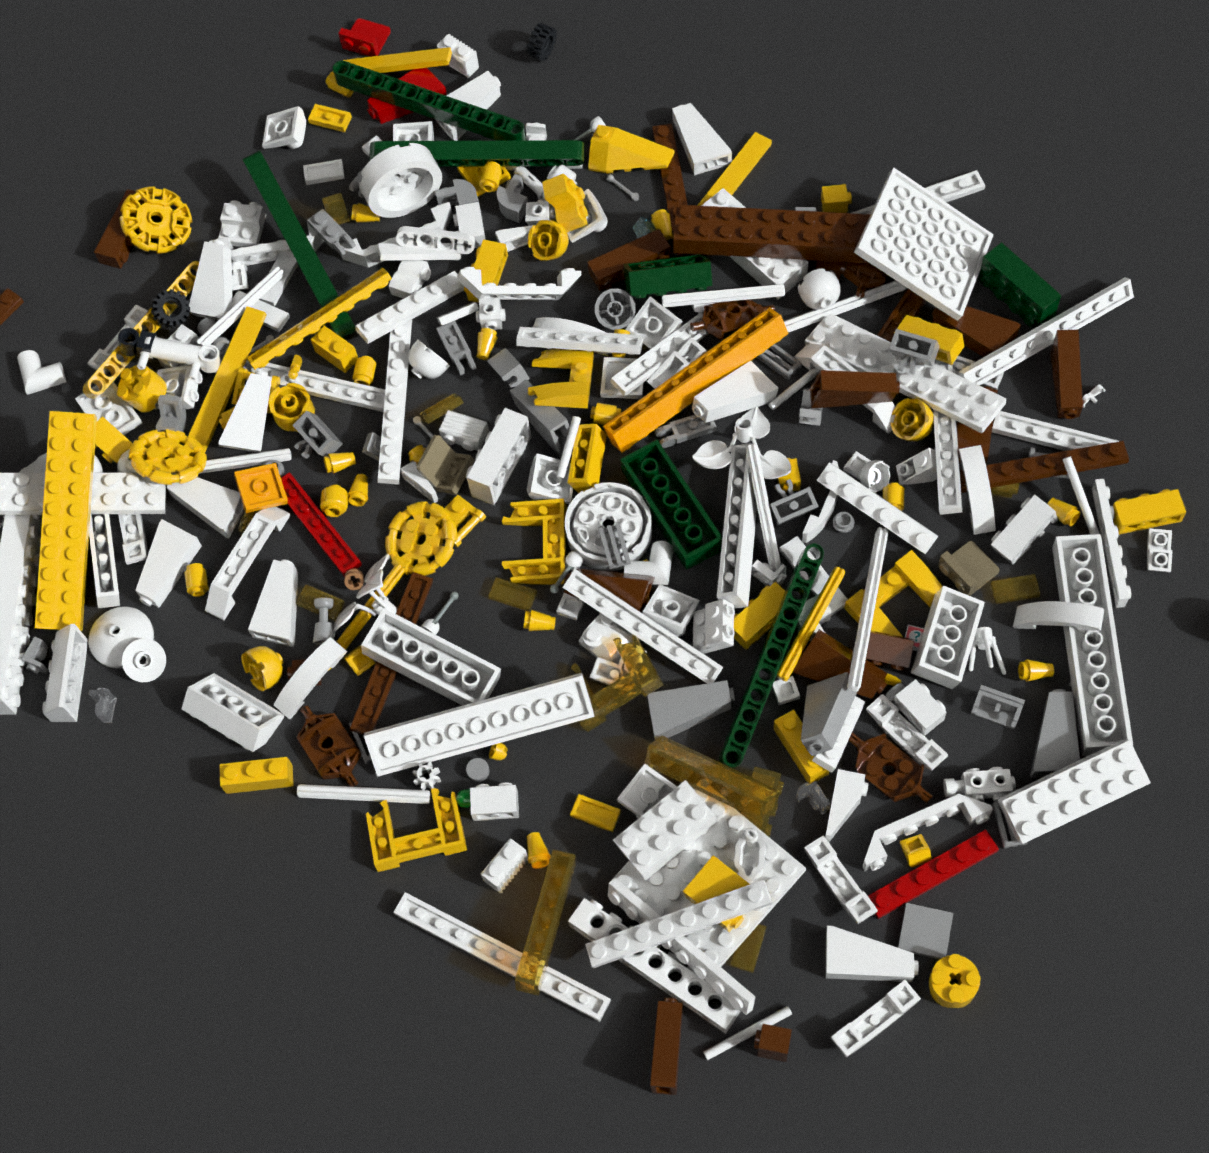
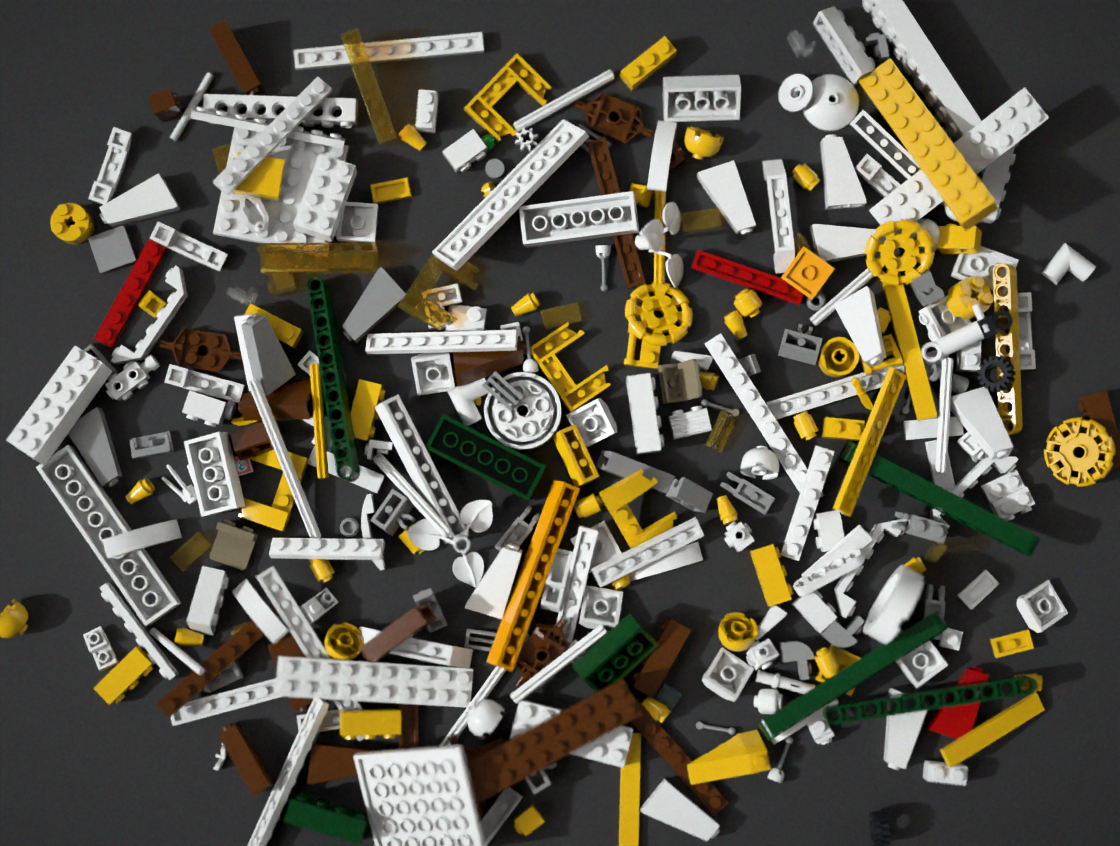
camera: 140 degrees right, 20 degrees up
(323, 628) = (680, 199): light grey piece -> none
(338, 461) = (769, 337): yellow cone -> none
(350, 584) = (686, 251): medium nougat bush -> none
(364, 37) = (1042, 744): red bracket -> none
(457, 313) = (767, 522): white tile -> none
(472, 281) = (698, 604): white slope -> none
(567, 201) = (741, 672): yellow brick -> none
(568, 447) = (593, 453): white bar -> none
(614, 308) = (639, 599): light grey cylinder -> none
(714, 626) = (390, 376): white plate -> none
(793, 388) = (457, 620): white bar -> none
(846, 798) = (219, 306): white slope -> none
(855, 464) = (366, 583): white tile -> none
(875, 475) = (346, 578): white hair -> none
(913, 348) = (370, 696): light grey brick -> none

